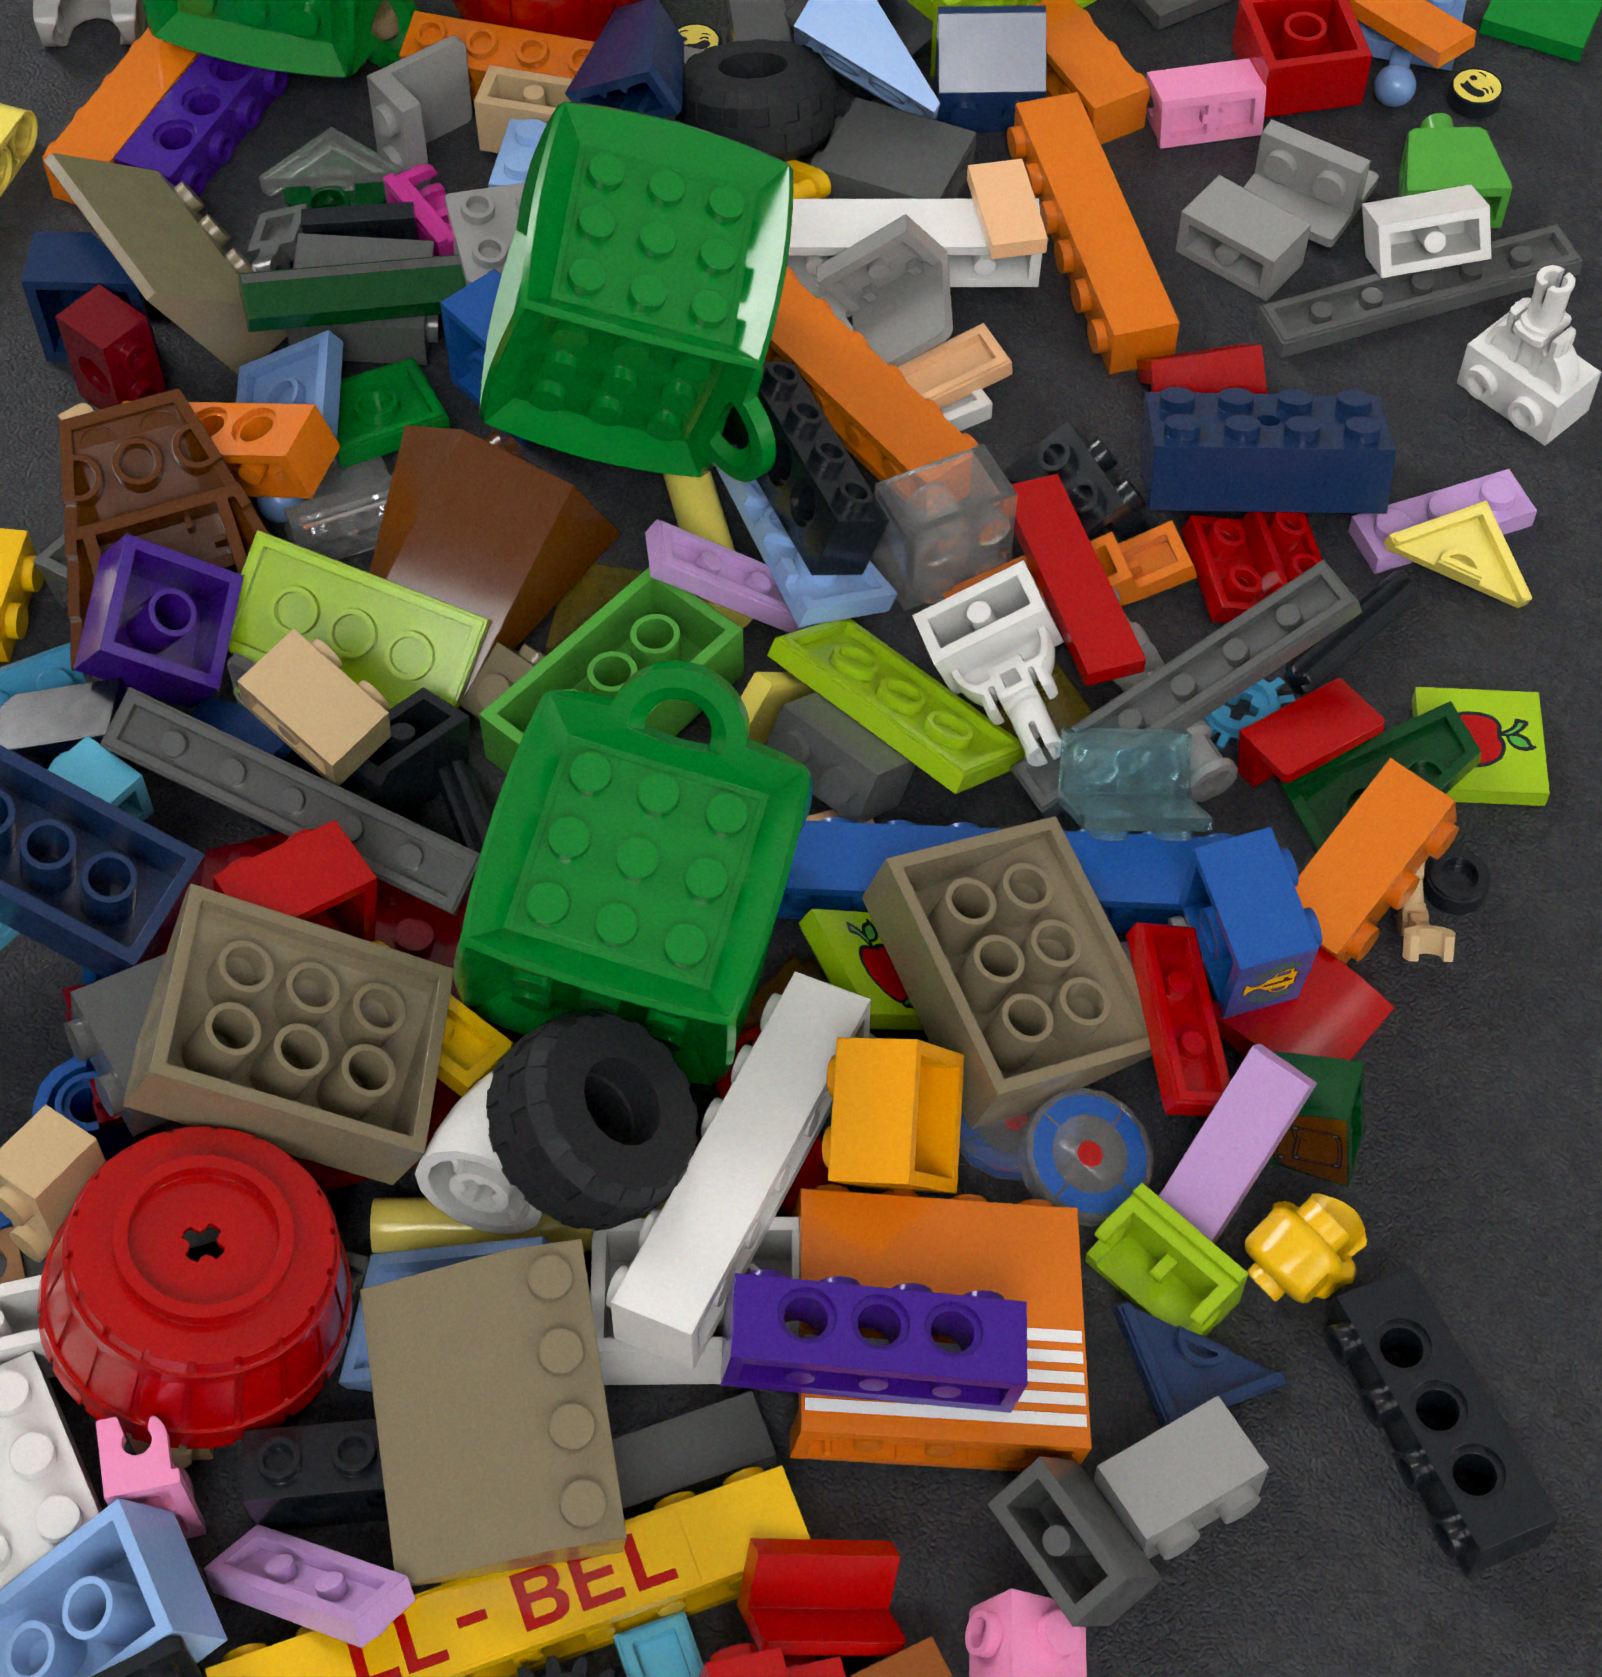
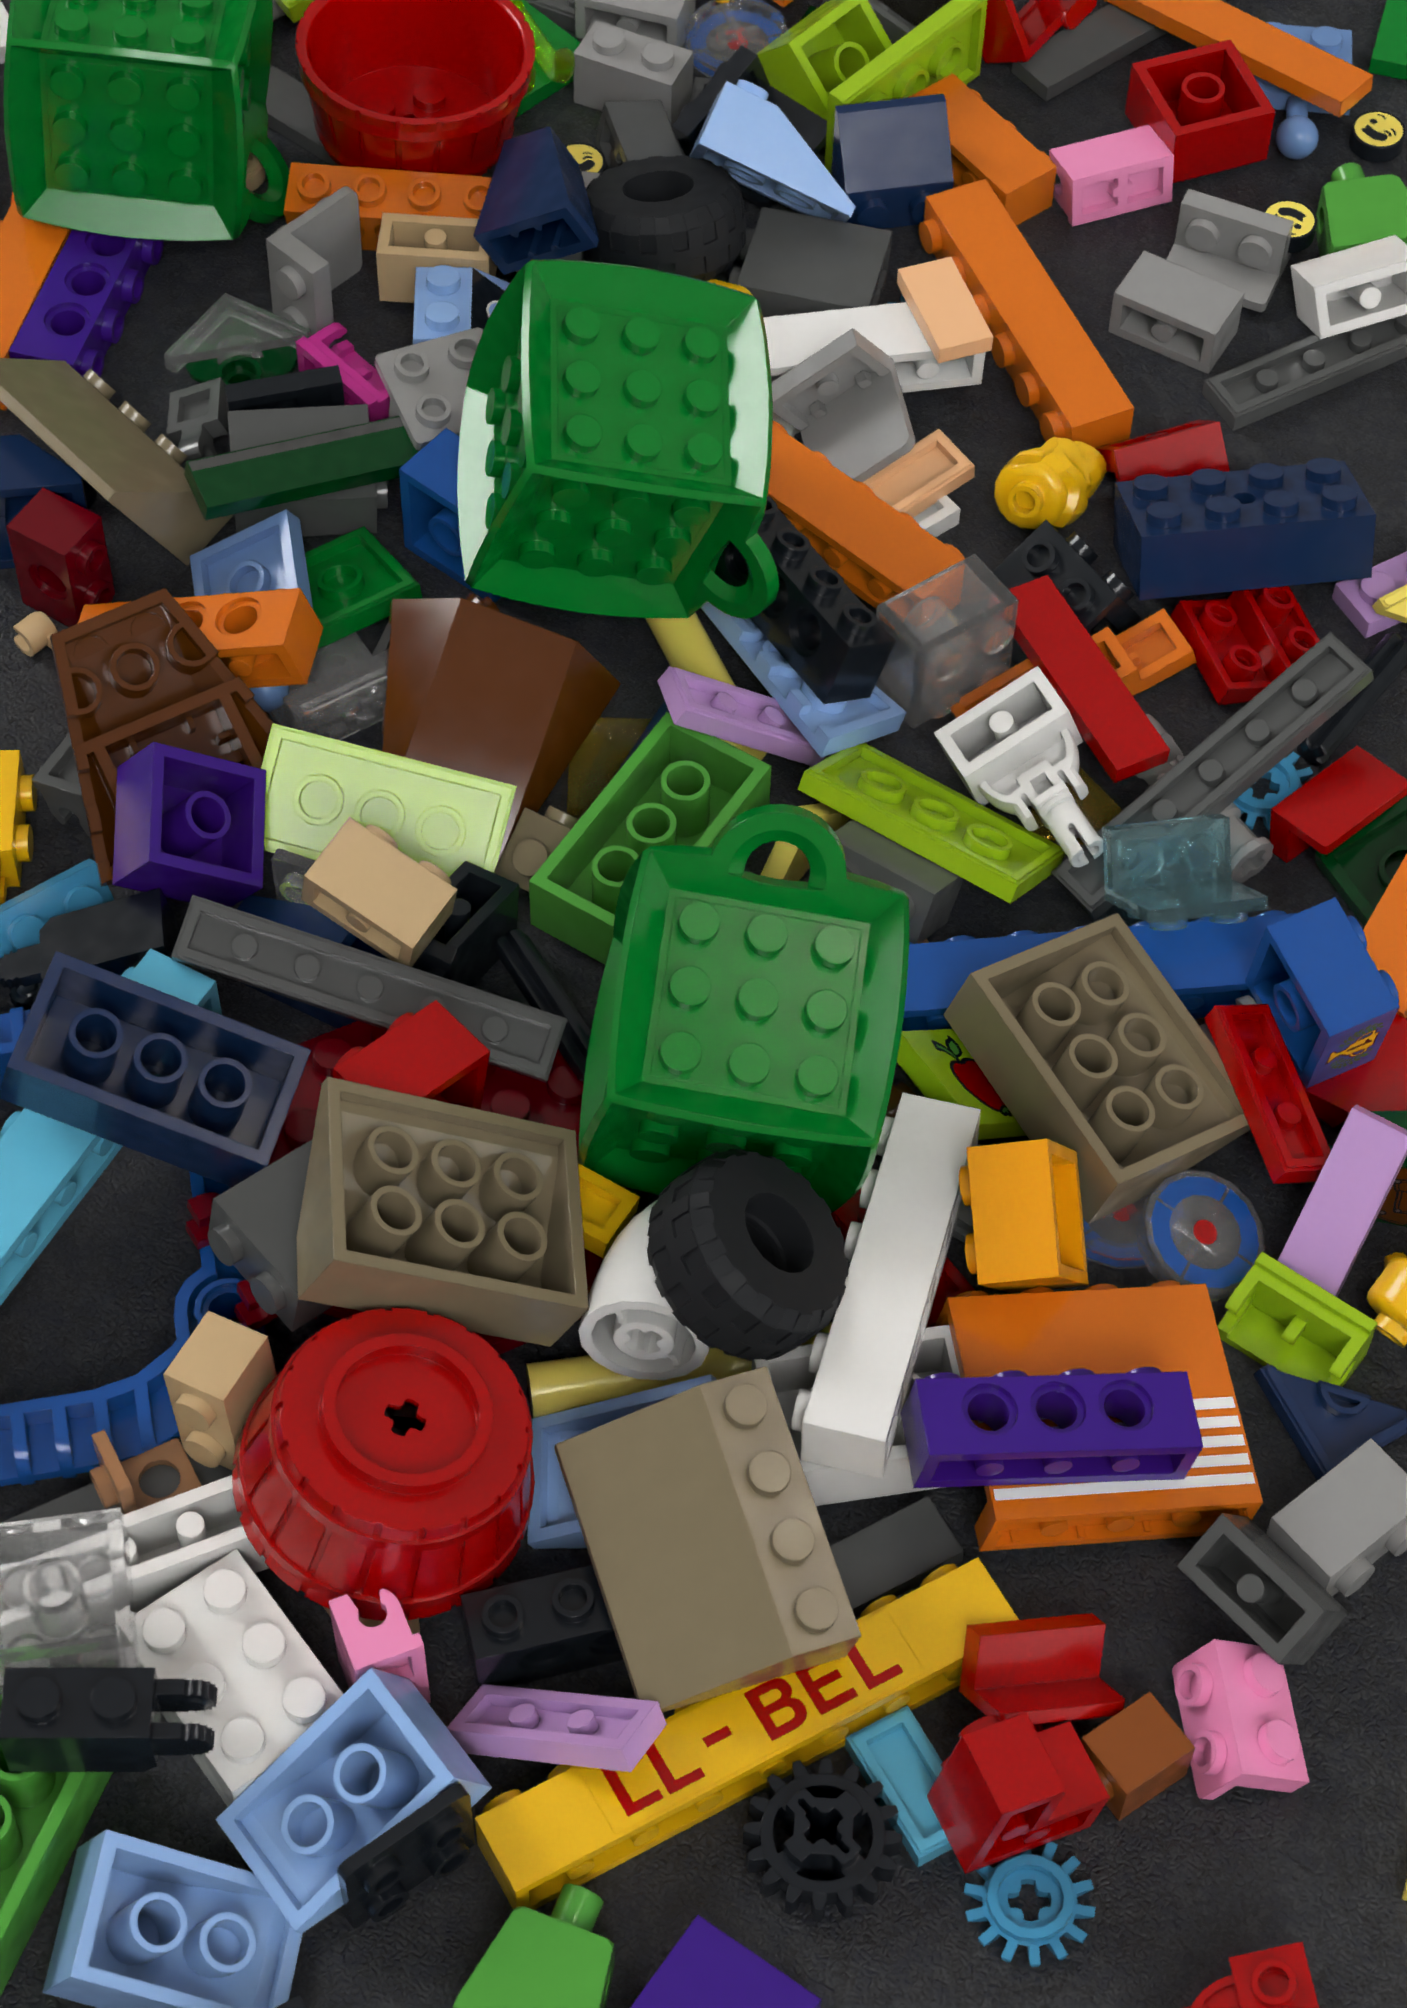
camera: 10 degrees left, 0 degrees up
(1084, 387) = (1049, 483): none -> yellow head
(1382, 164) = (1304, 222): none -> tile

